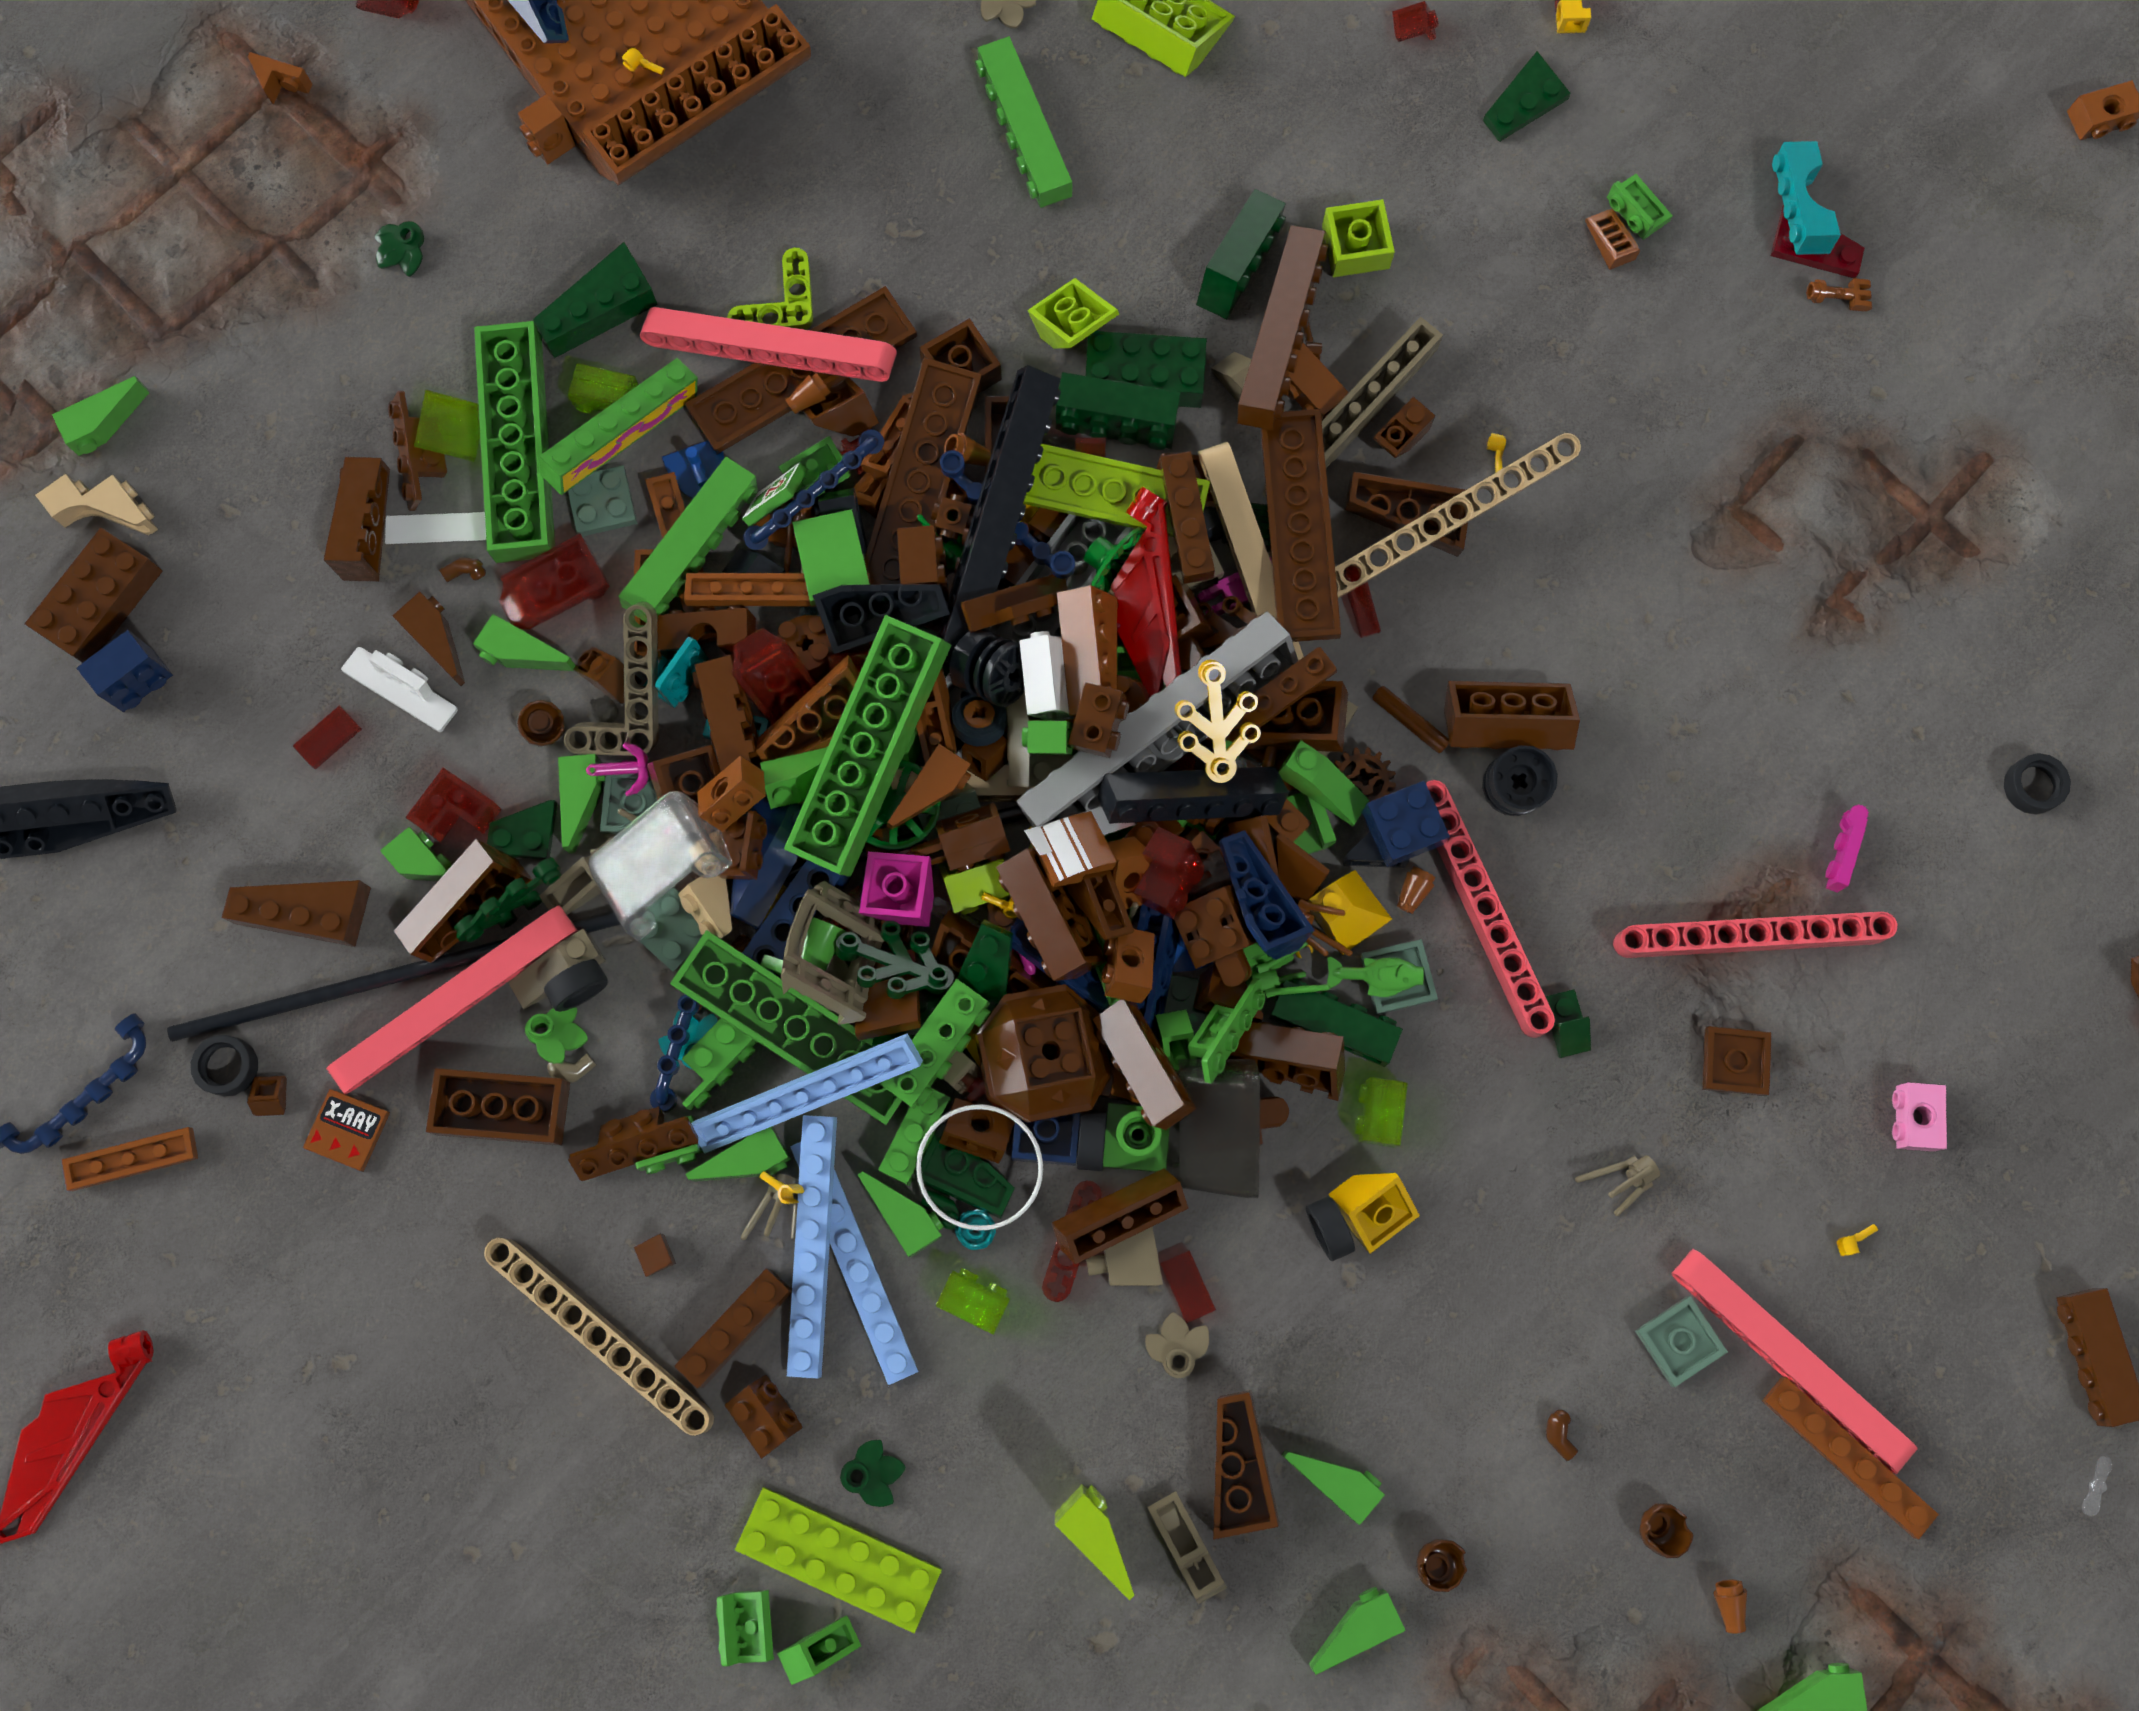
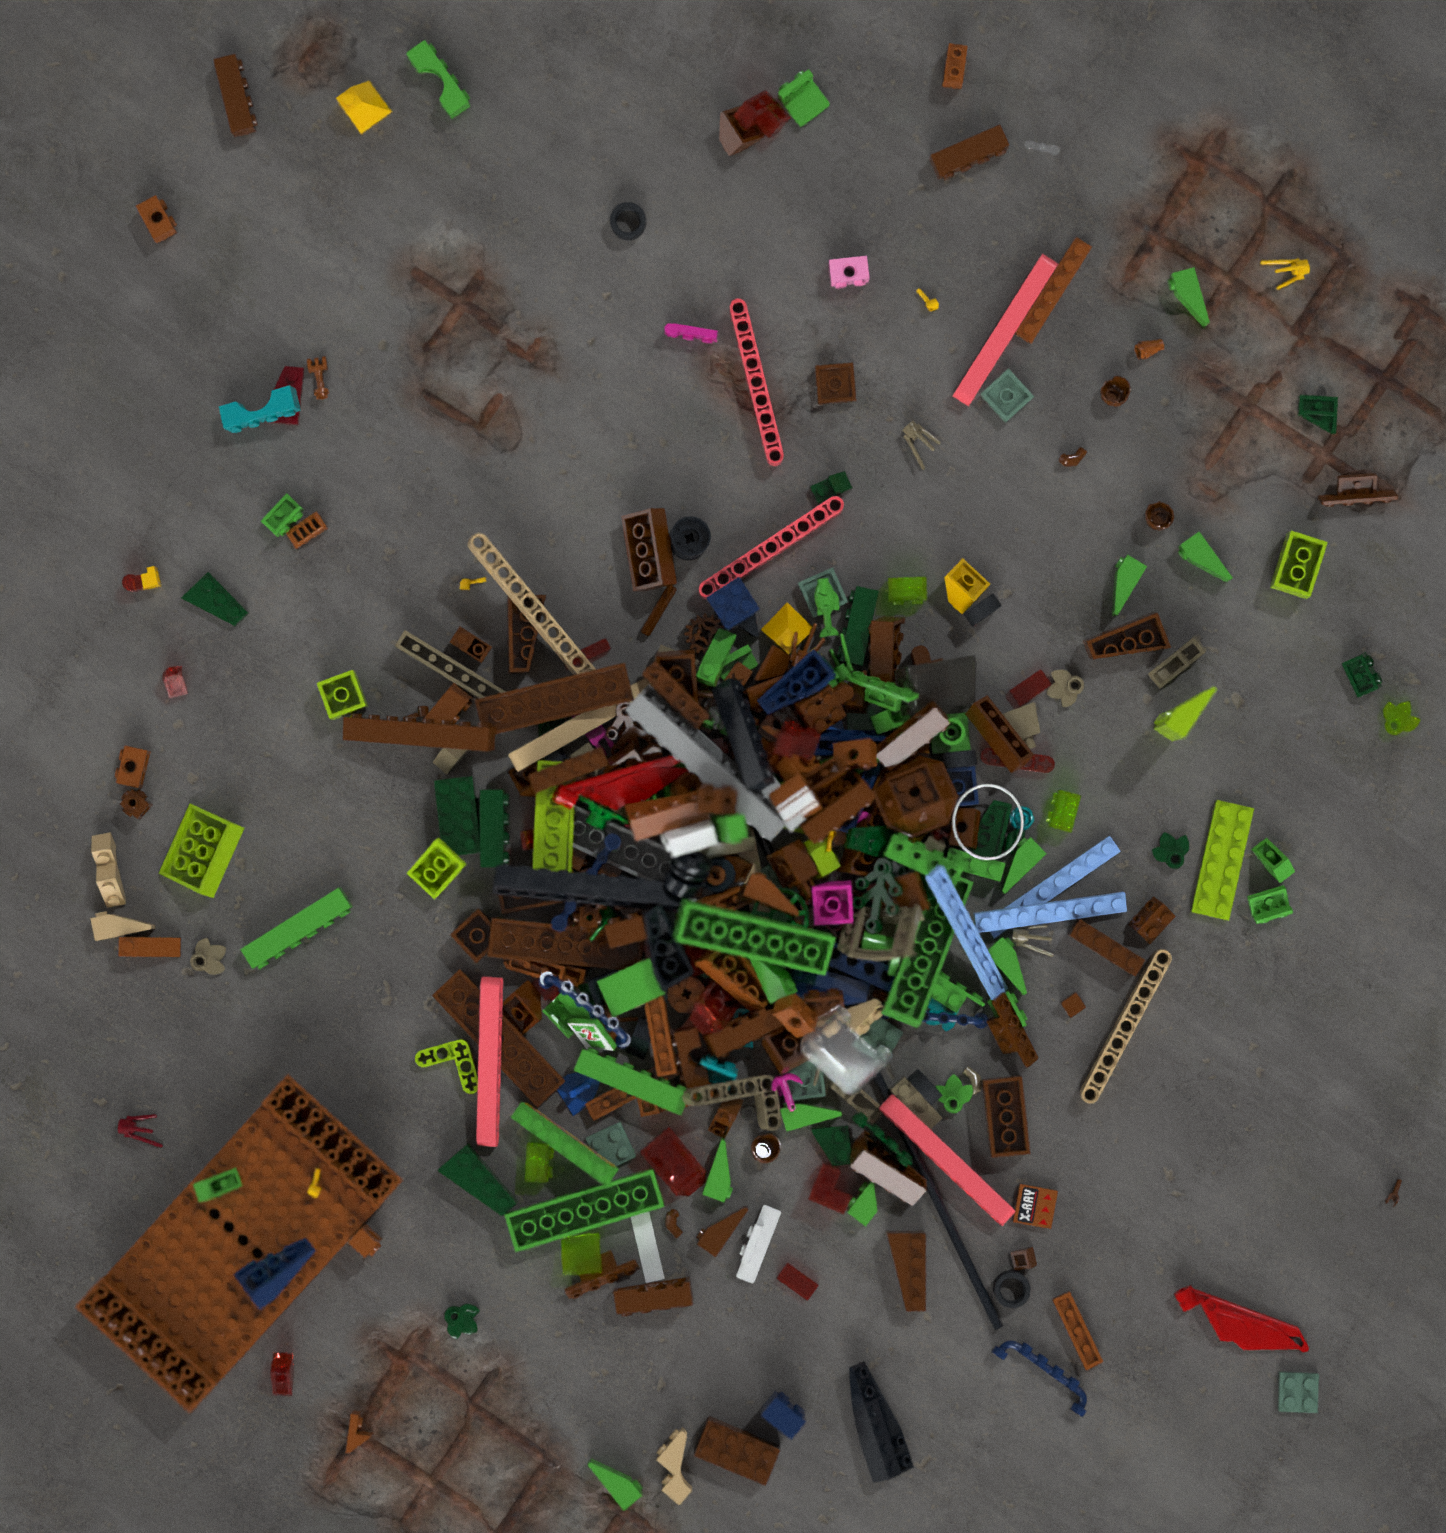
camera: 100 degrees left, 10 degrees up
(785, 1192) = (1023, 934): yellow hand -> none
(808, 393) = (518, 1028): dark orange cone -> none
(971, 450) = (544, 918): dark orange cone -> none
(1014, 603) = (644, 864): reddish brown bracket -> none
(1218, 727) = (703, 727): yellow plant -> none
(1240, 253) = (365, 768): dark green wedge -> none
(1415, 889) = (767, 591): dark orange cone -> none

